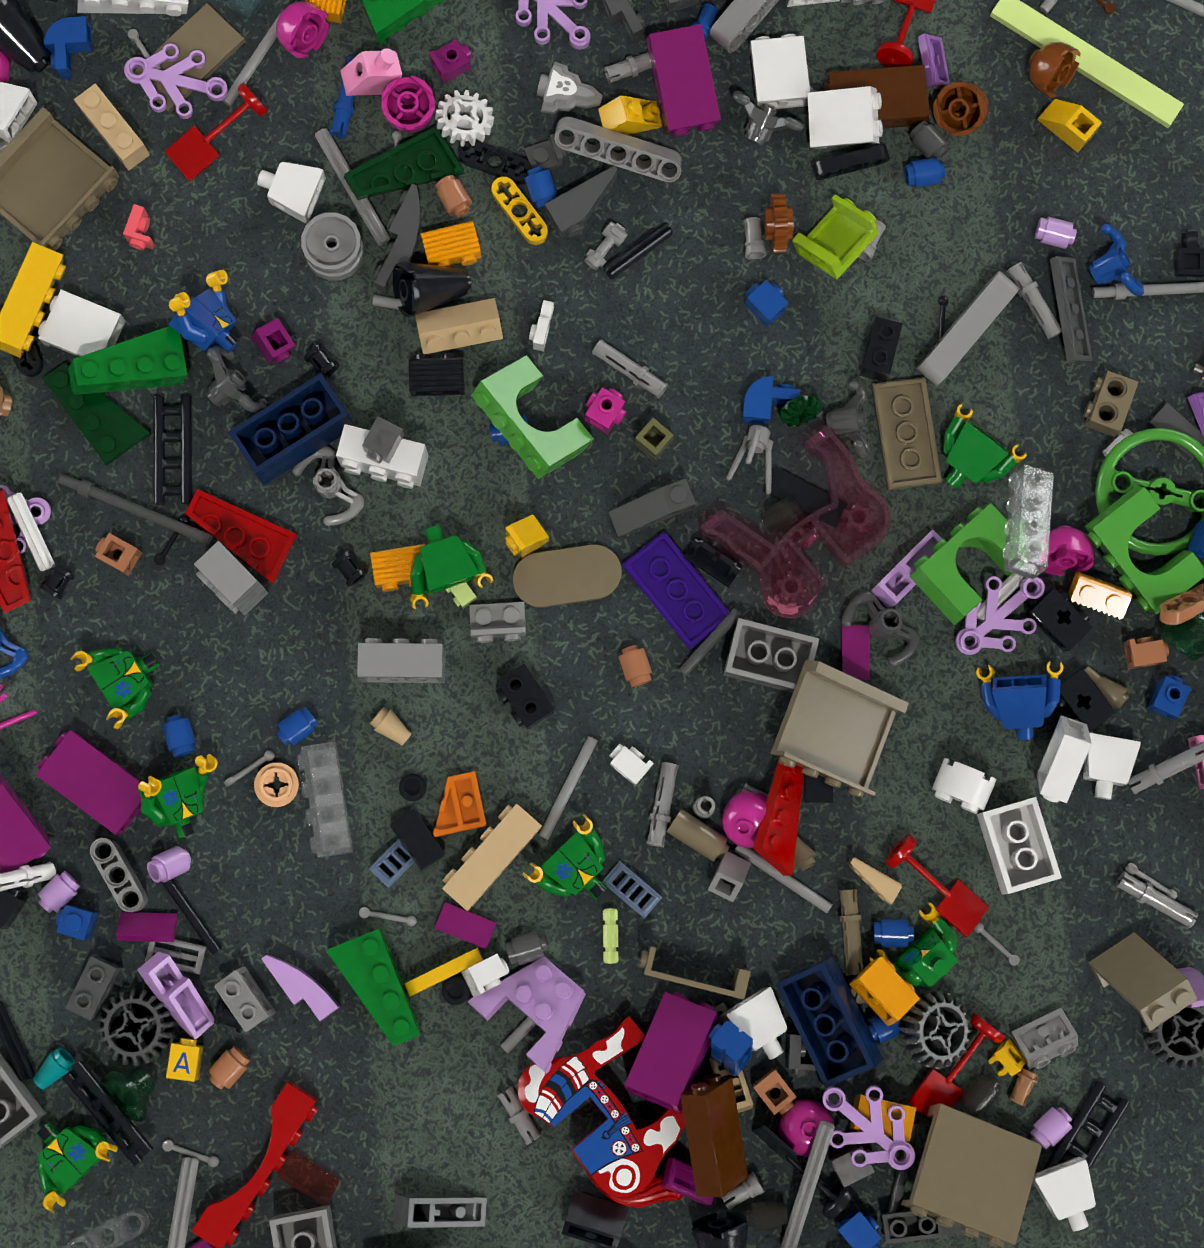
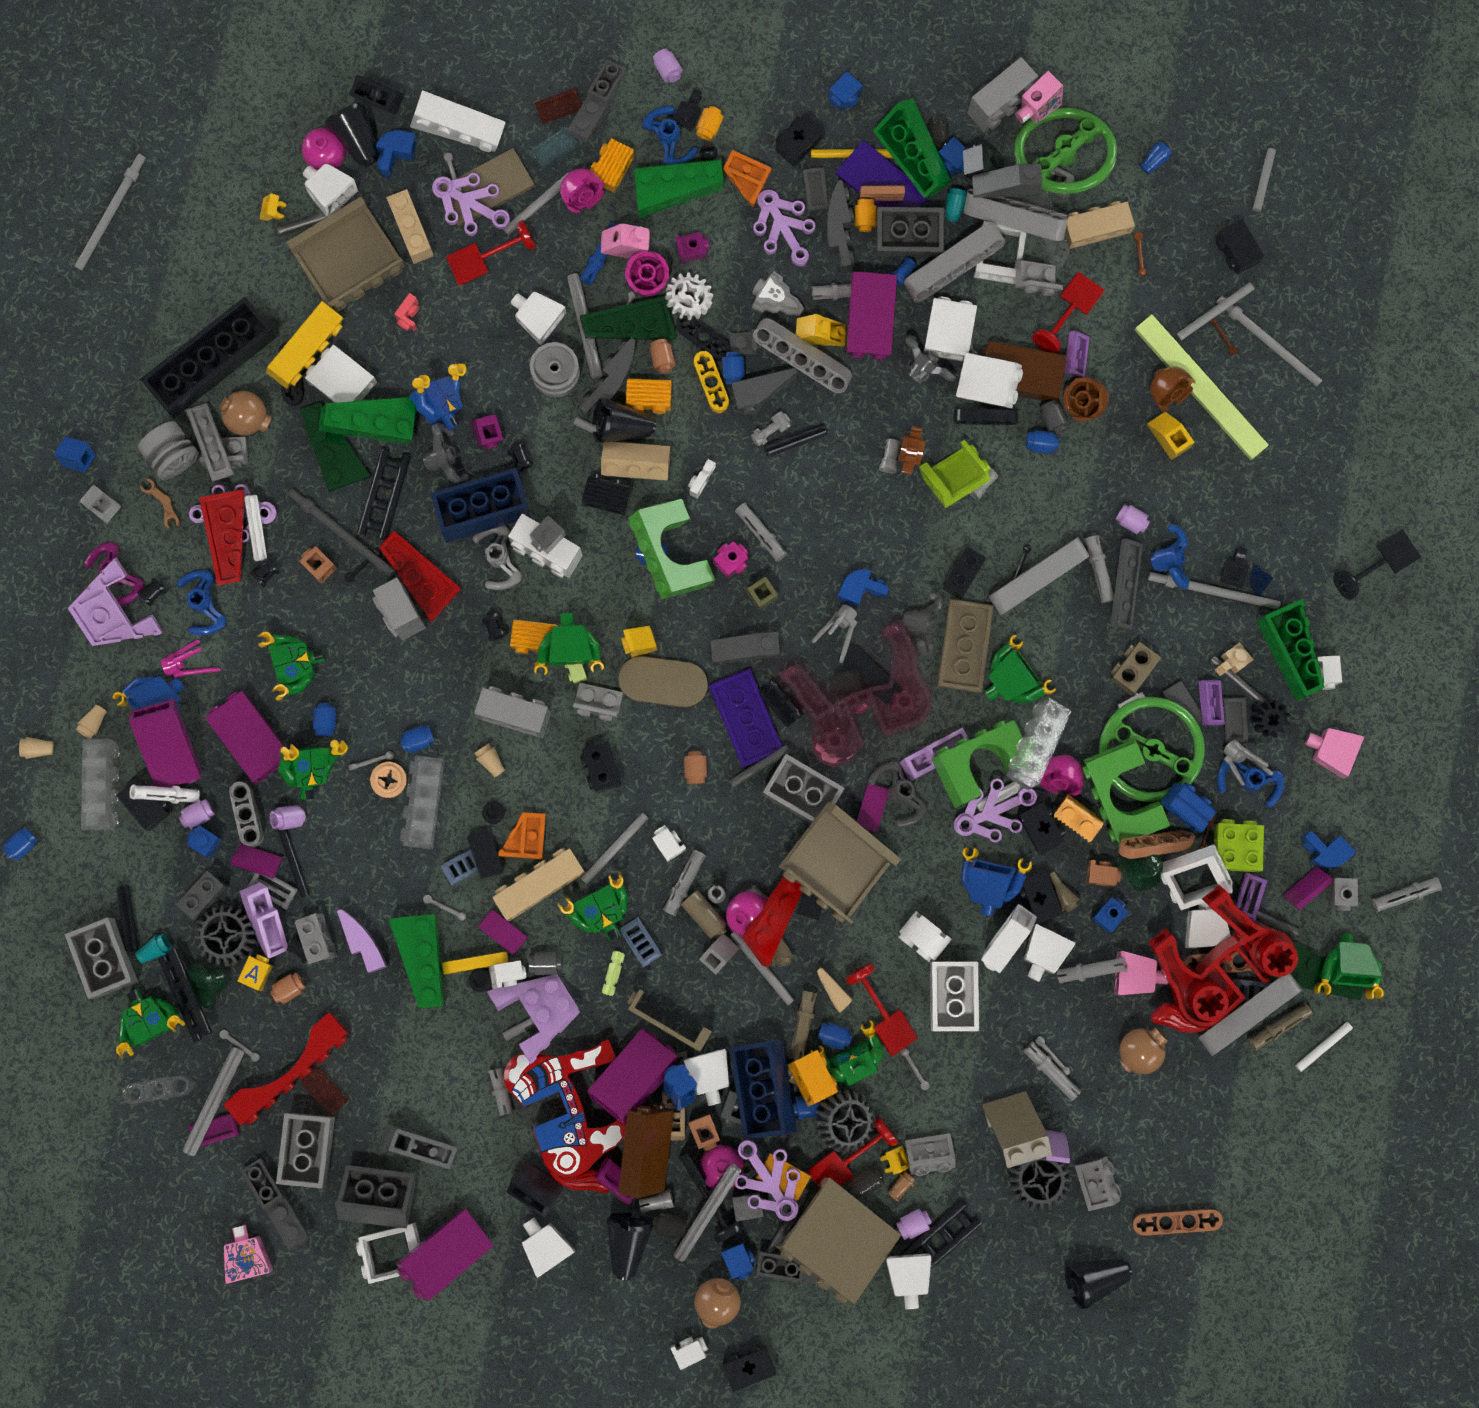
camera: 20 degrees right, 0 degrees up
(766, 302) = (884, 509): blue brick -> none
(800, 410) = (885, 603): dark green gear -> none

